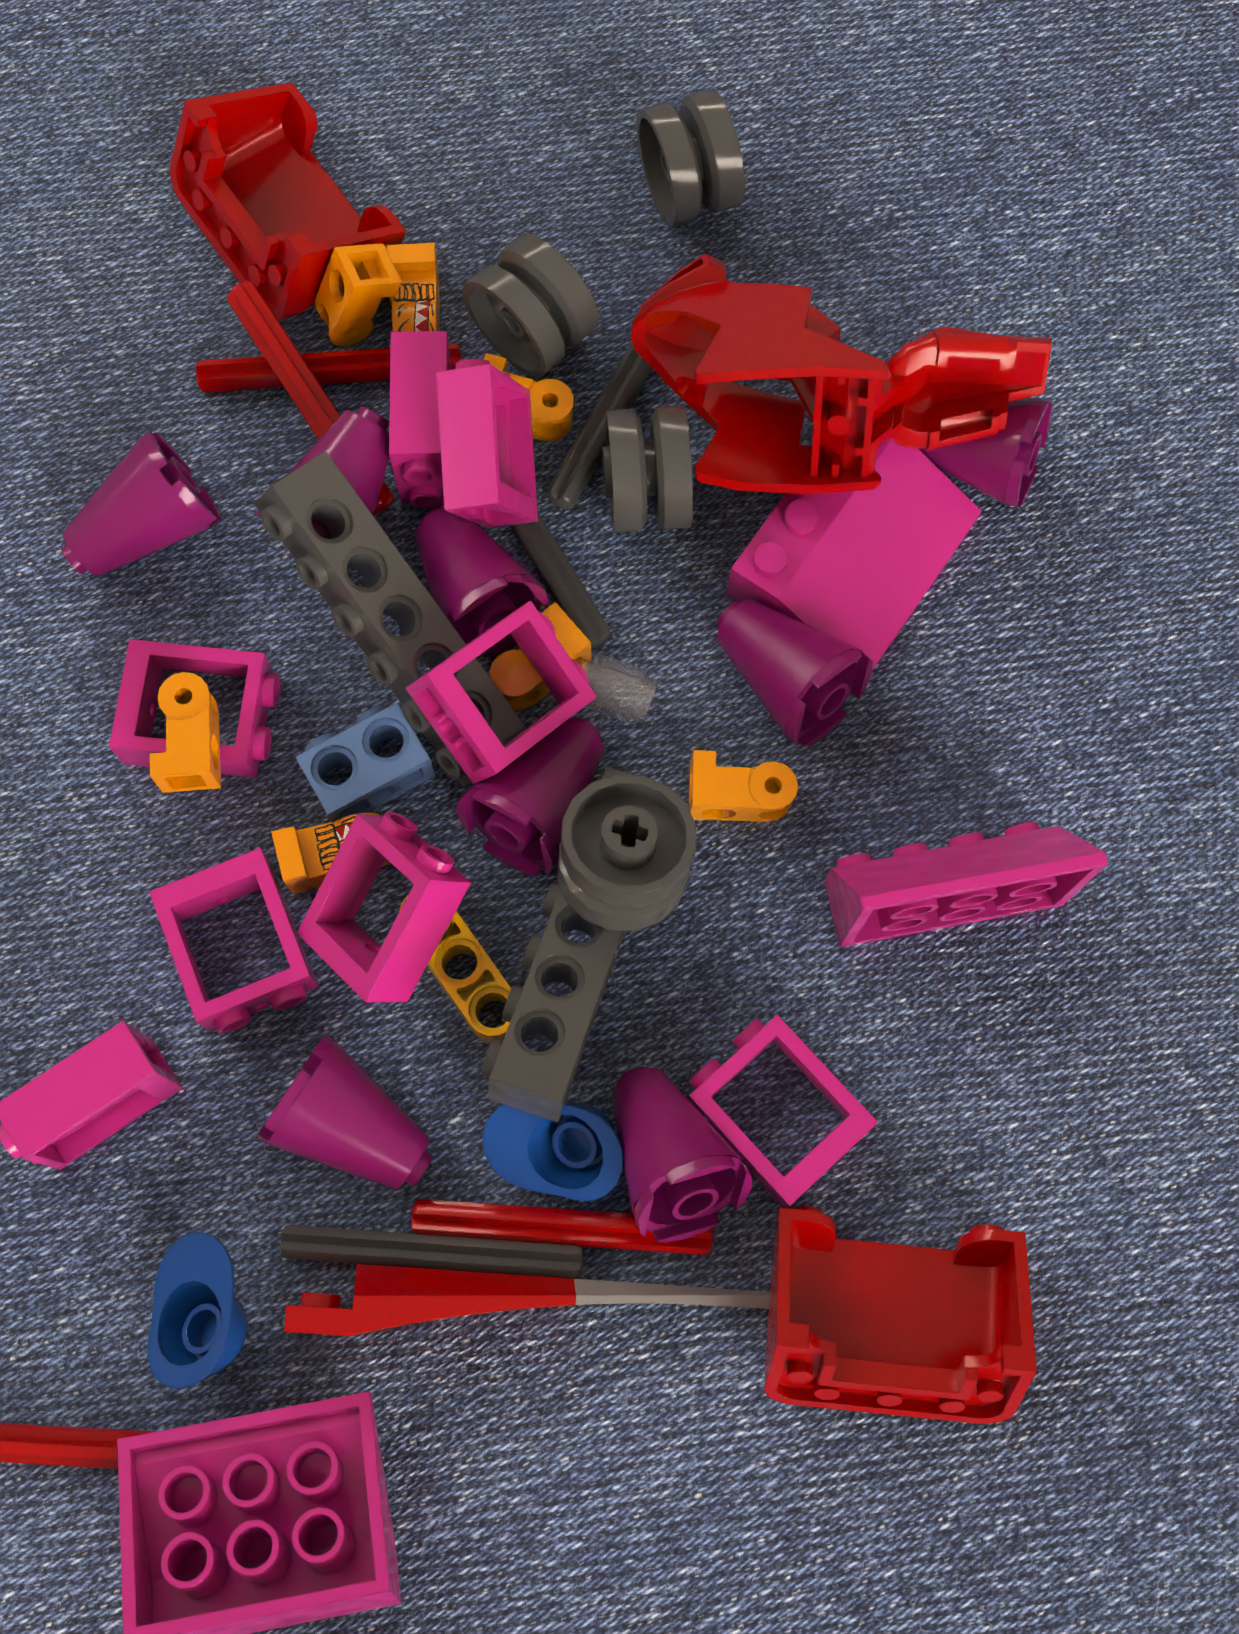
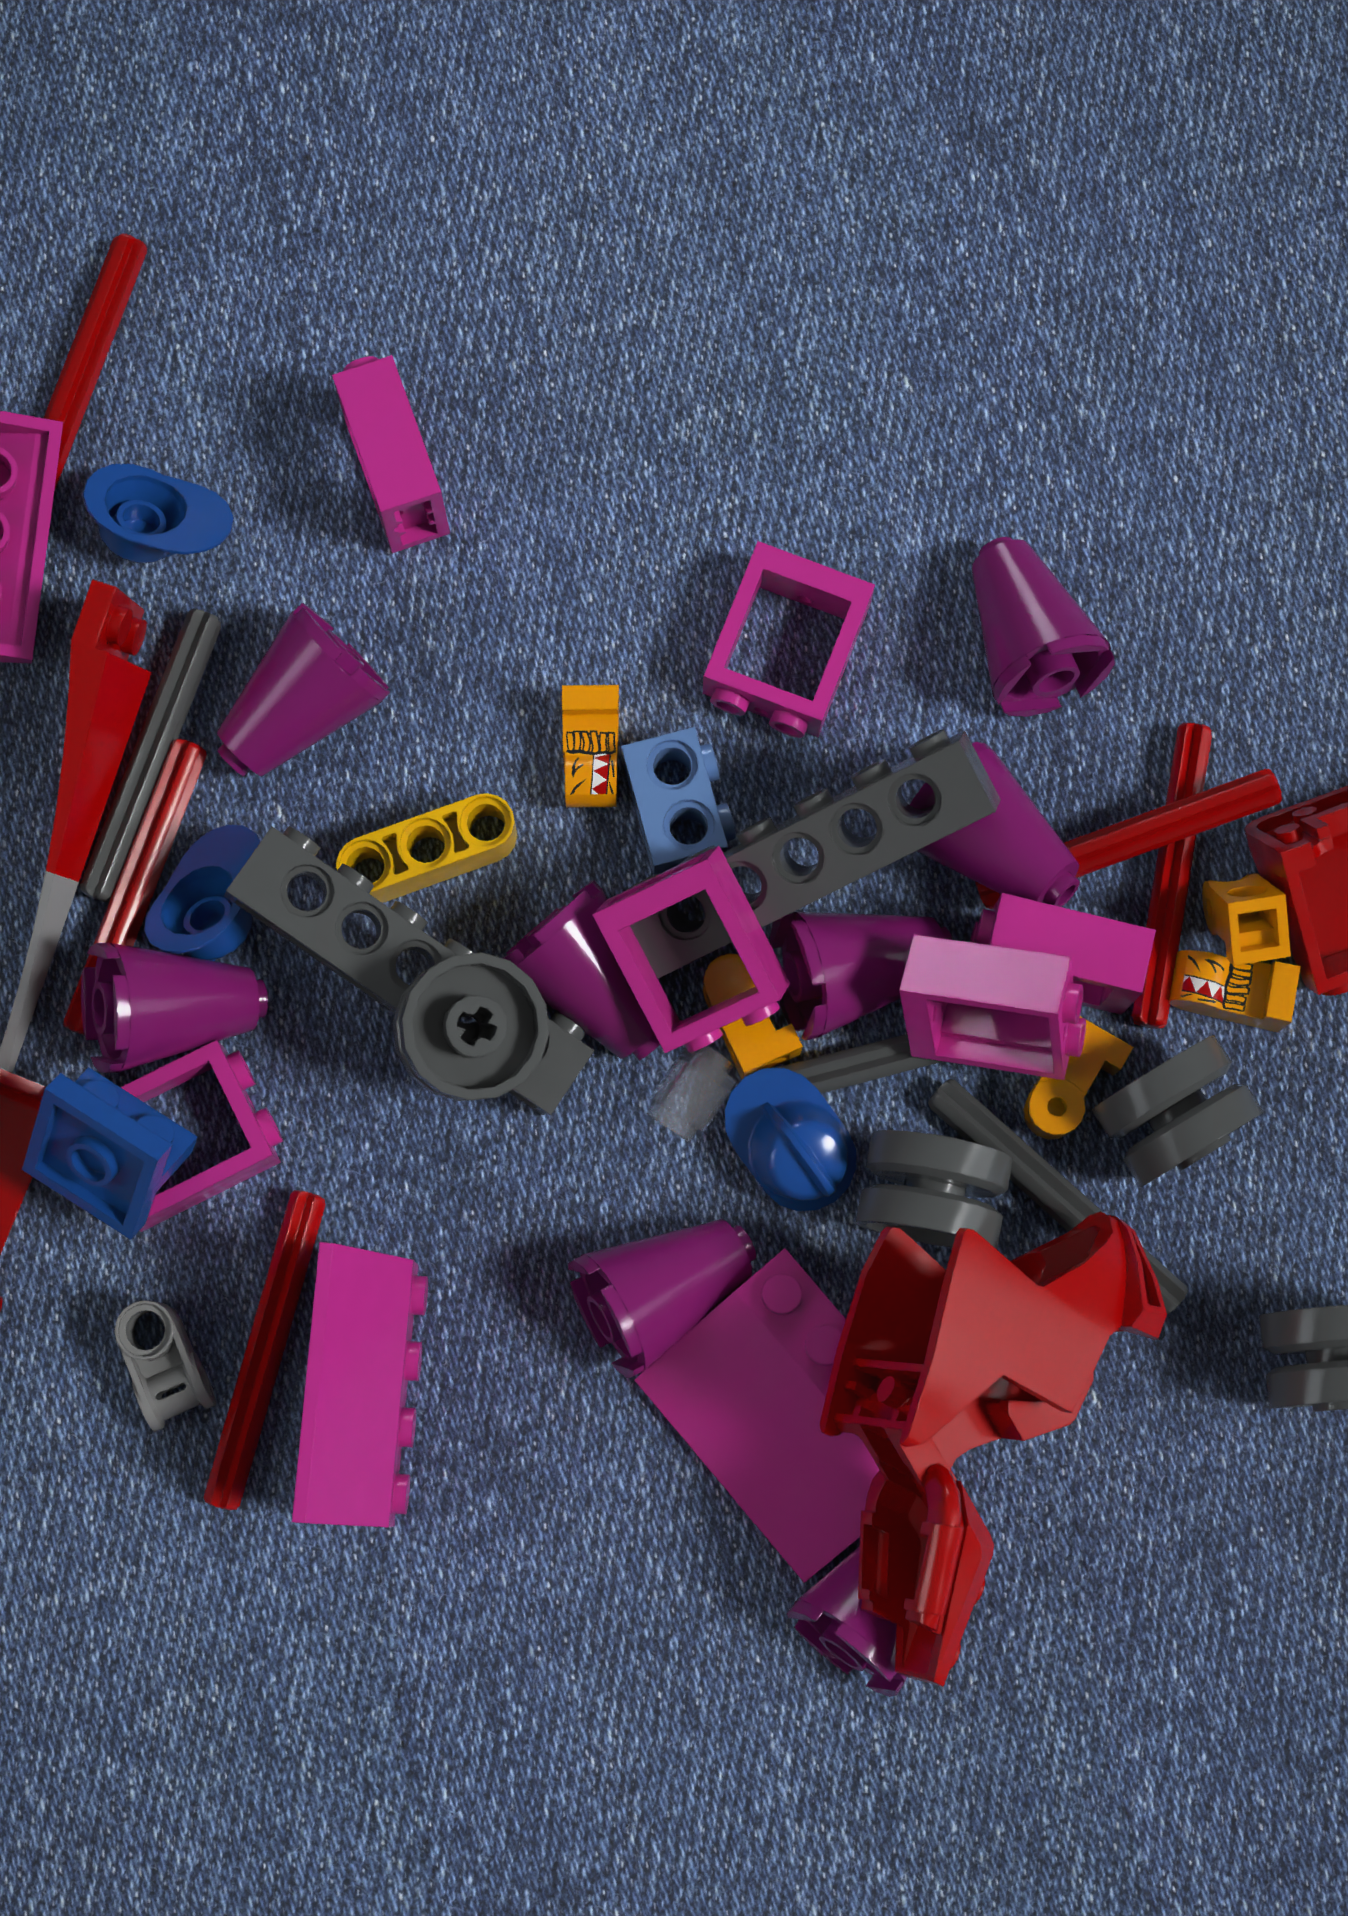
camera: 105 degrees right, 5 degrees up
(191, 736) = (738, 621): light orange leg -> none
(212, 889) = (527, 680): dark pink window -> none
(329, 926) = (471, 738): dark pink window -> none
(633, 601) = (790, 1139): none -> blue piece
(739, 792) = (528, 1212): light orange leg -> none
(823, 1152) = (104, 1149): none -> blue bracket
(938, 985) = (264, 1350): none -> red axle
(987, 1062) = (163, 1367): none -> light grey piece

